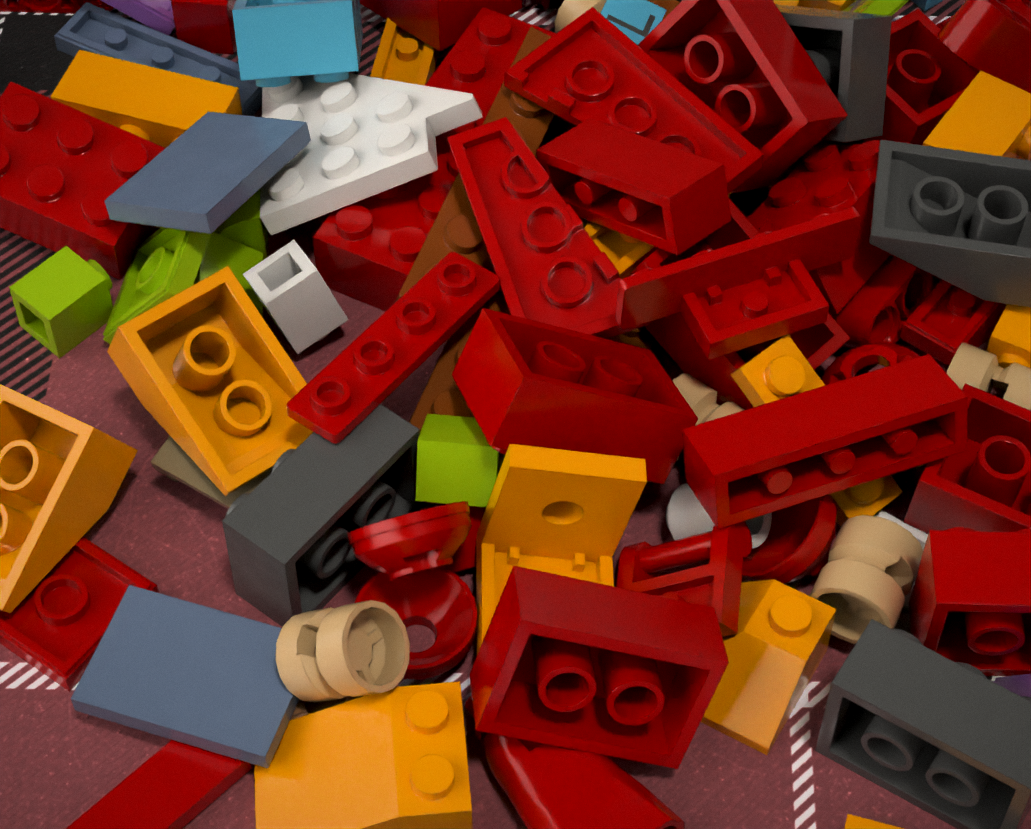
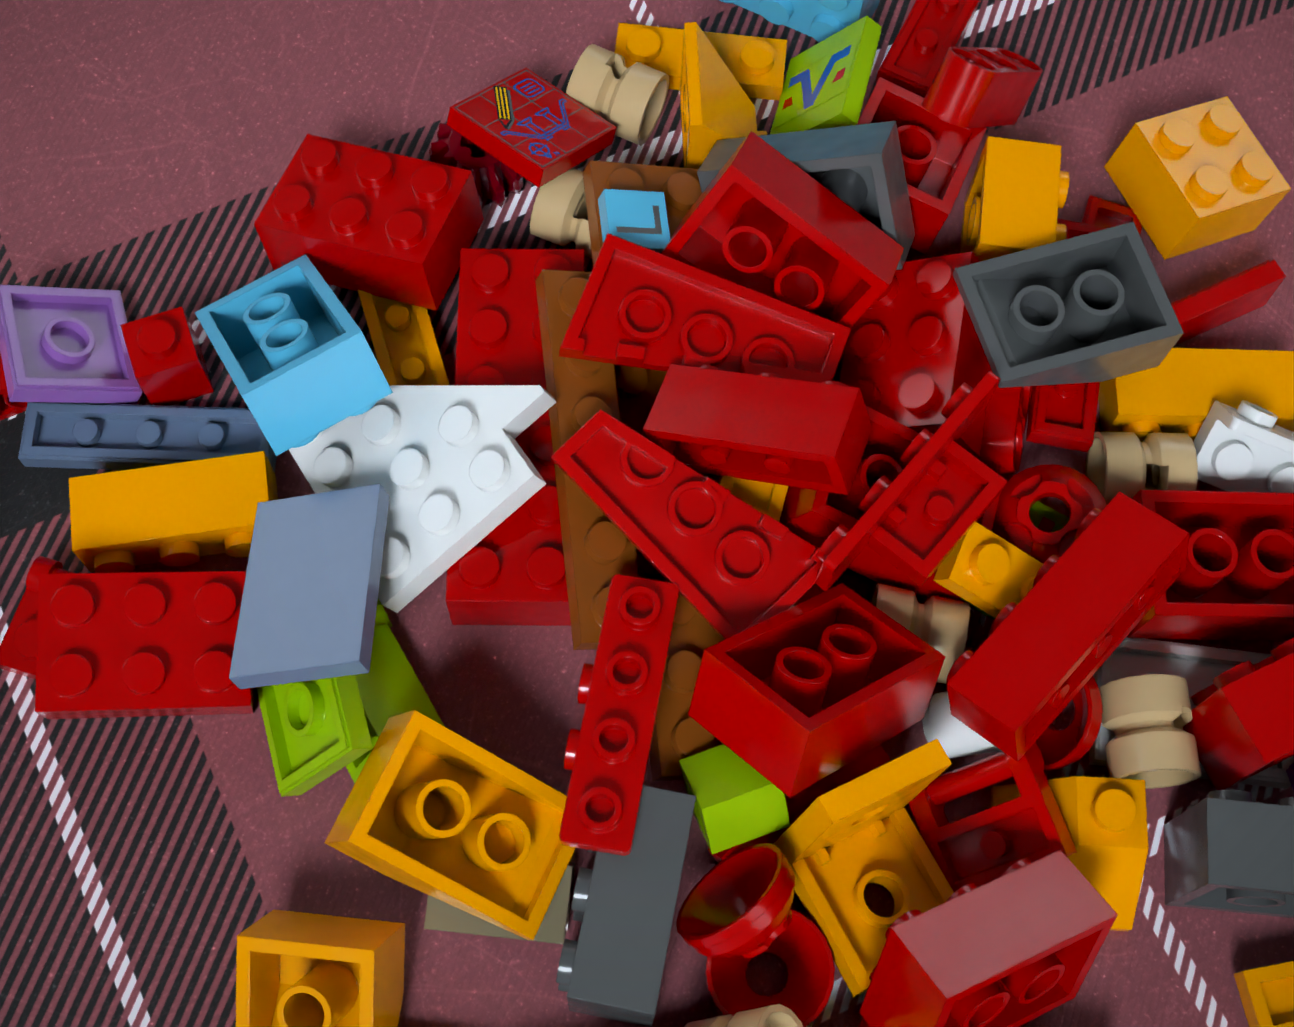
camera: 30 degrees left, 15 degrees up
(63, 300) = (220, 776): lime brick -> none
(295, 296) = (458, 669): white brick -> none

